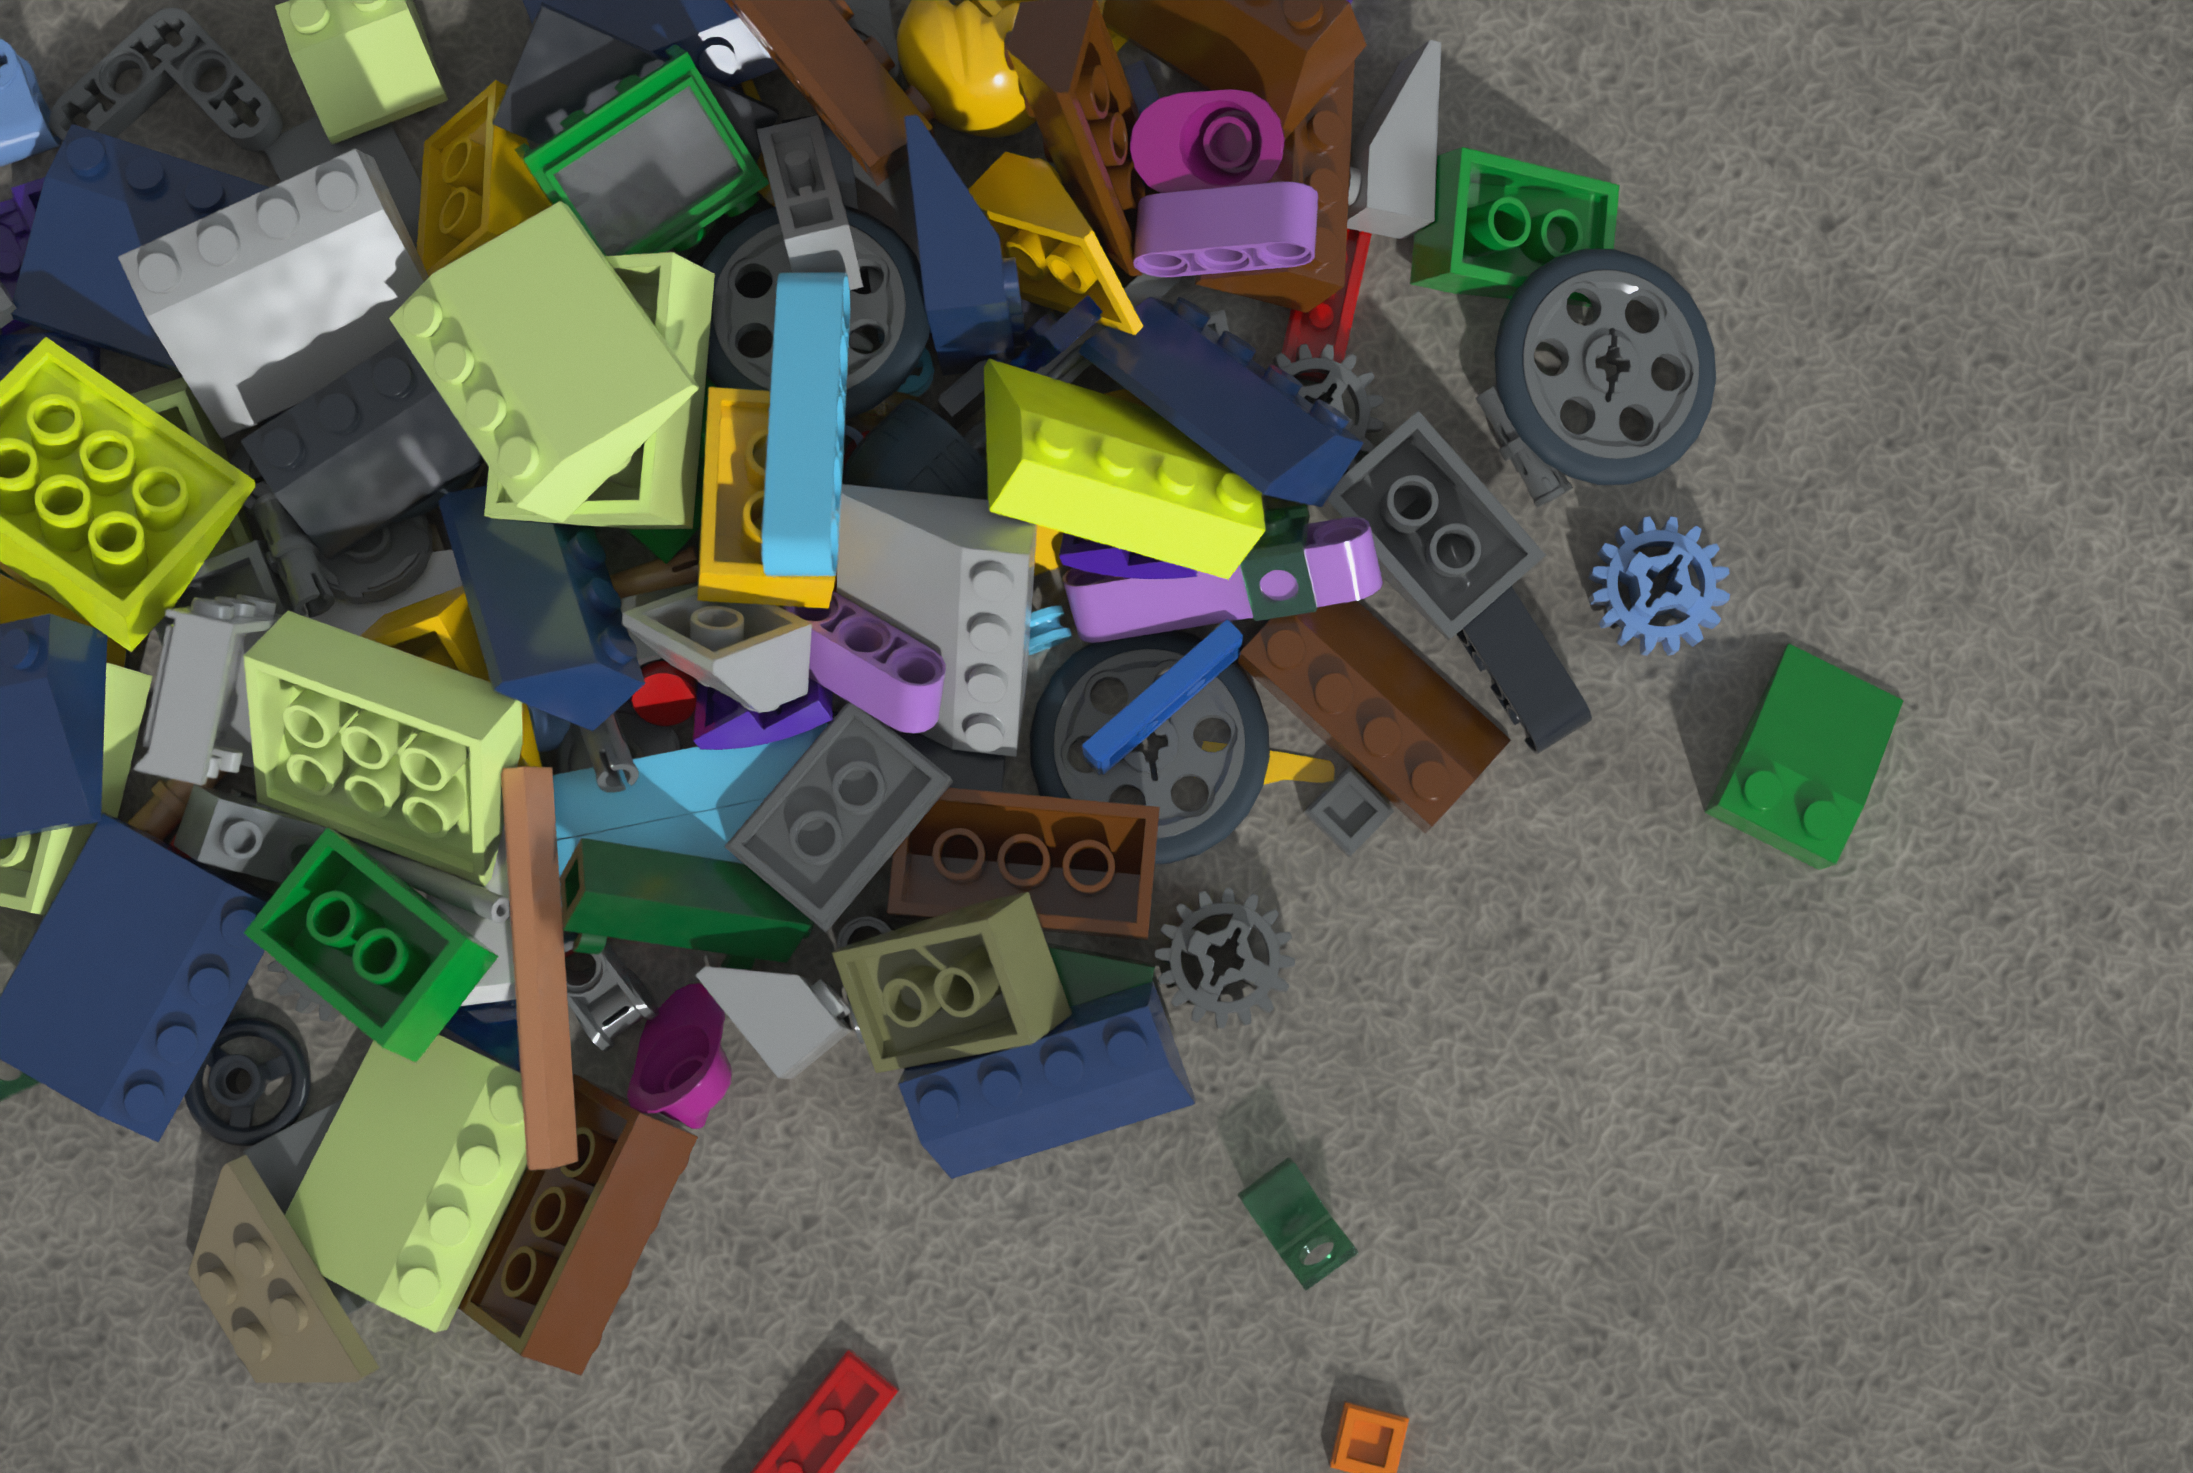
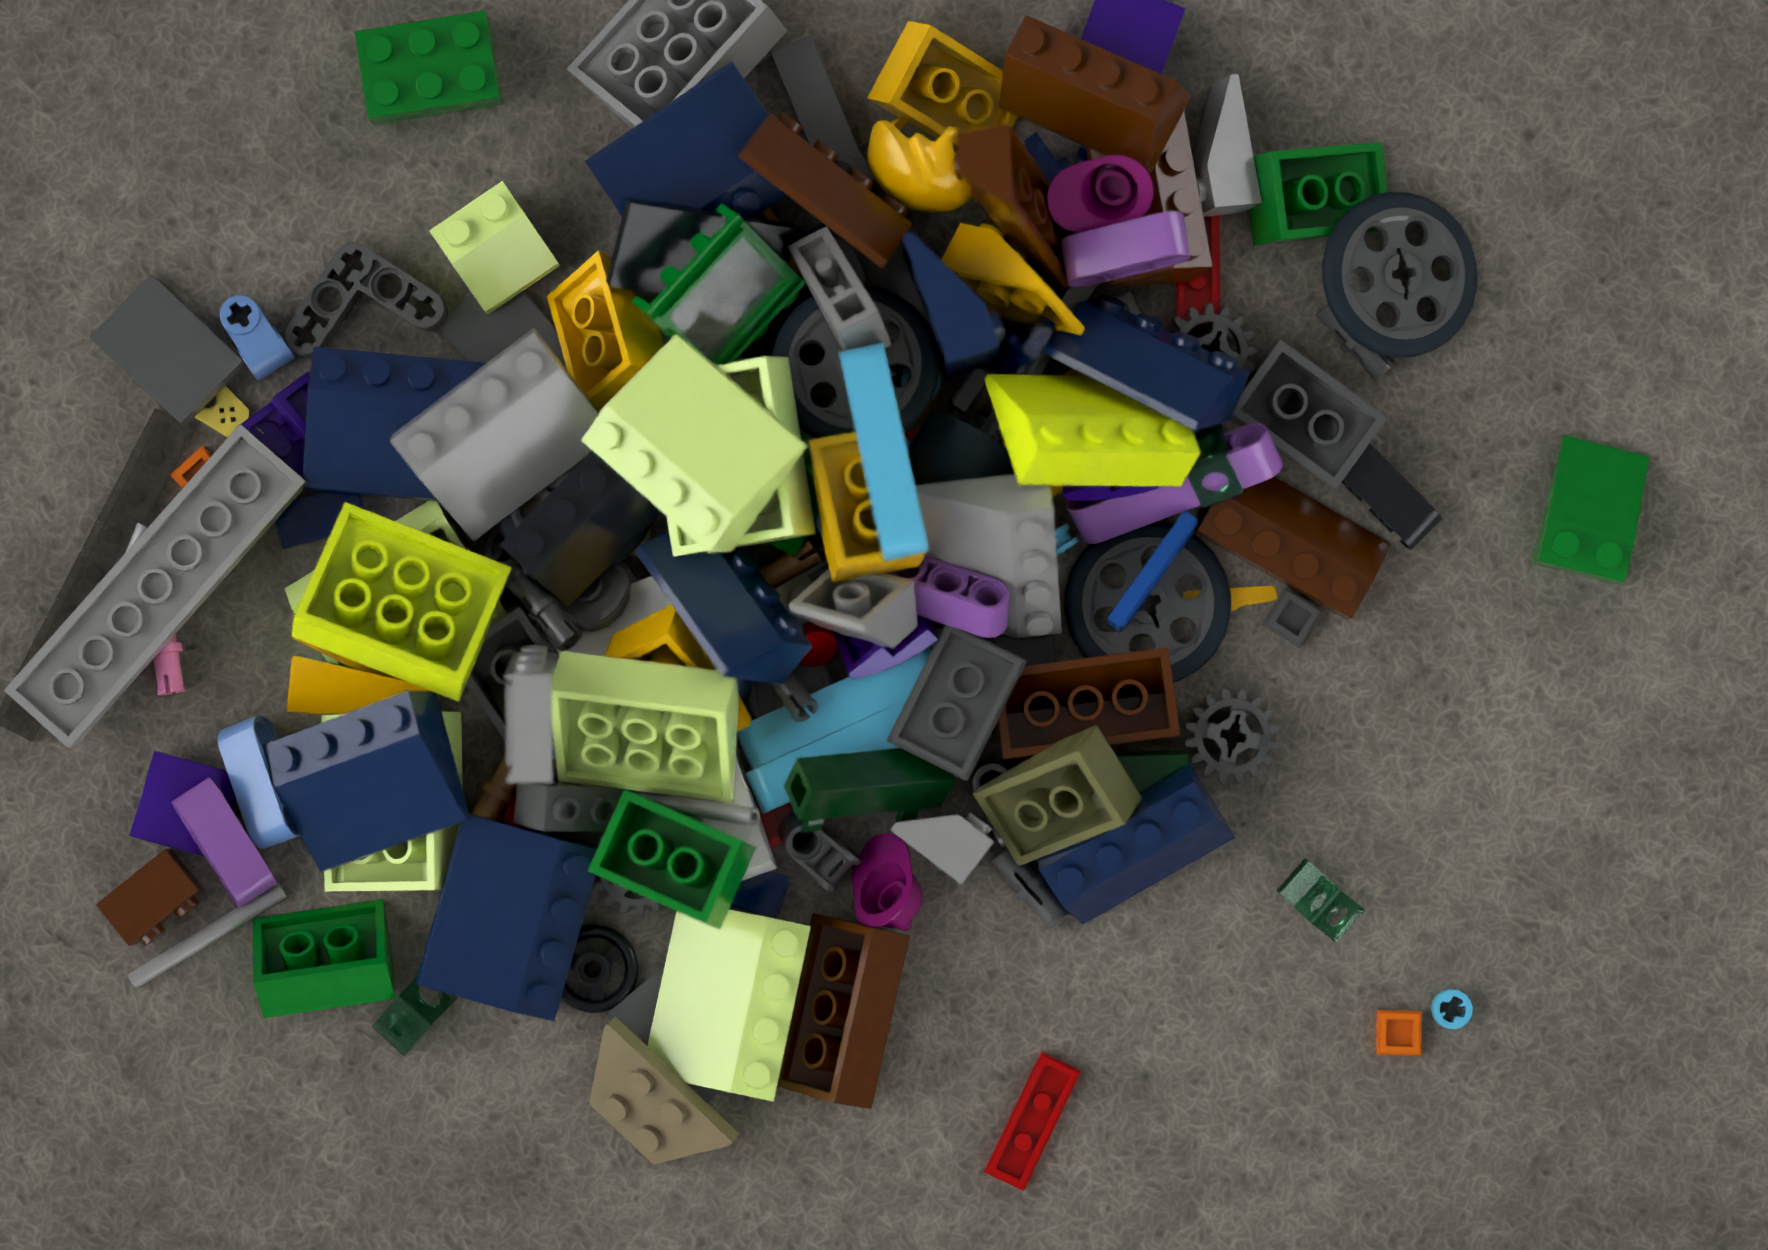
camera: 15 degrees left, 5 degrees up
(539, 967) = (785, 847): nougat tile -> none
(886, 1110) = (1031, 889): none -> dark grey pin
(1456, 1446) = (1457, 1021): none -> medium azure bush
(1681, 597) = (1449, 410): medium blue gear -> none

